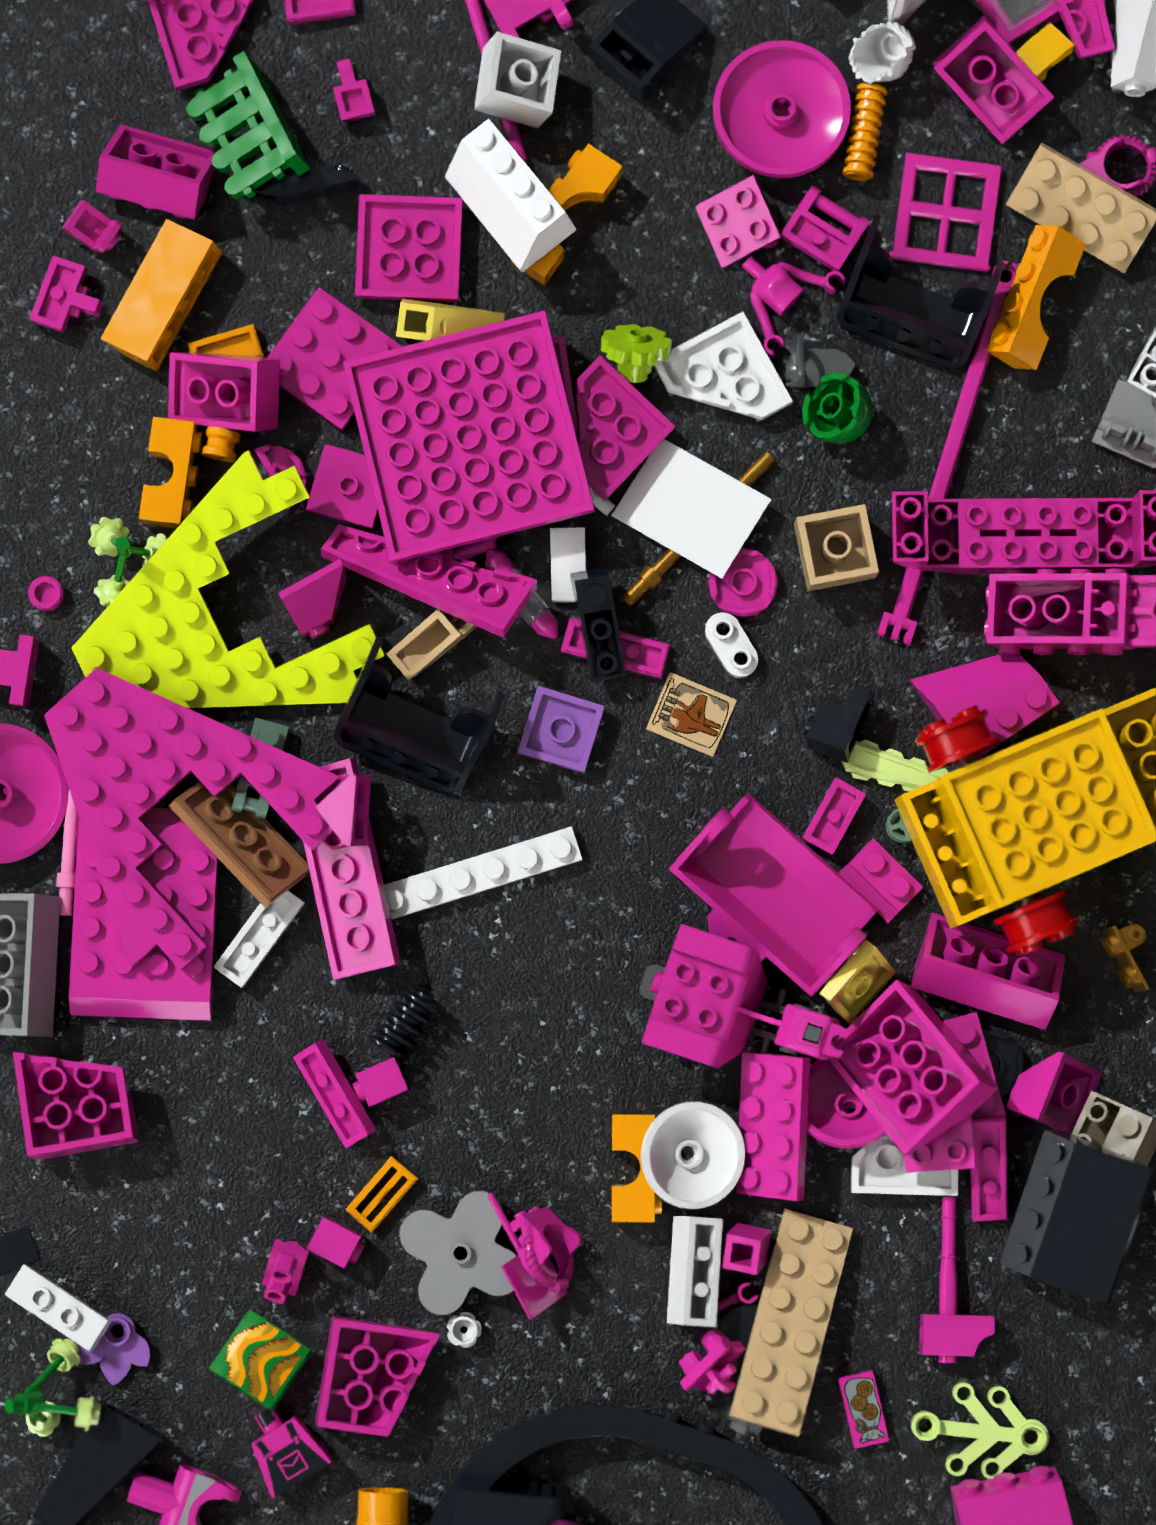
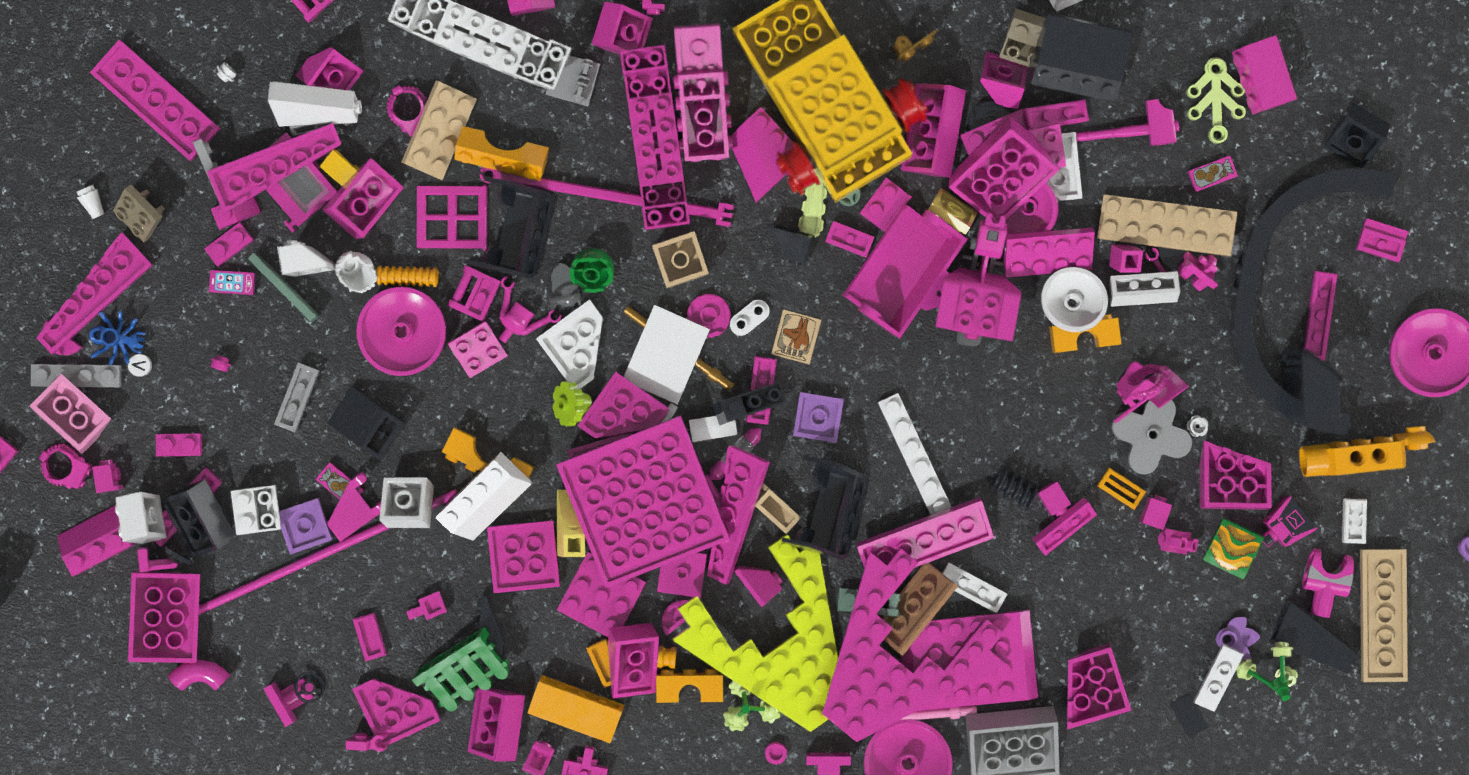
camera: 100 degrees left, 5 degrees up
(348, 809) = (891, 543): slope -> none

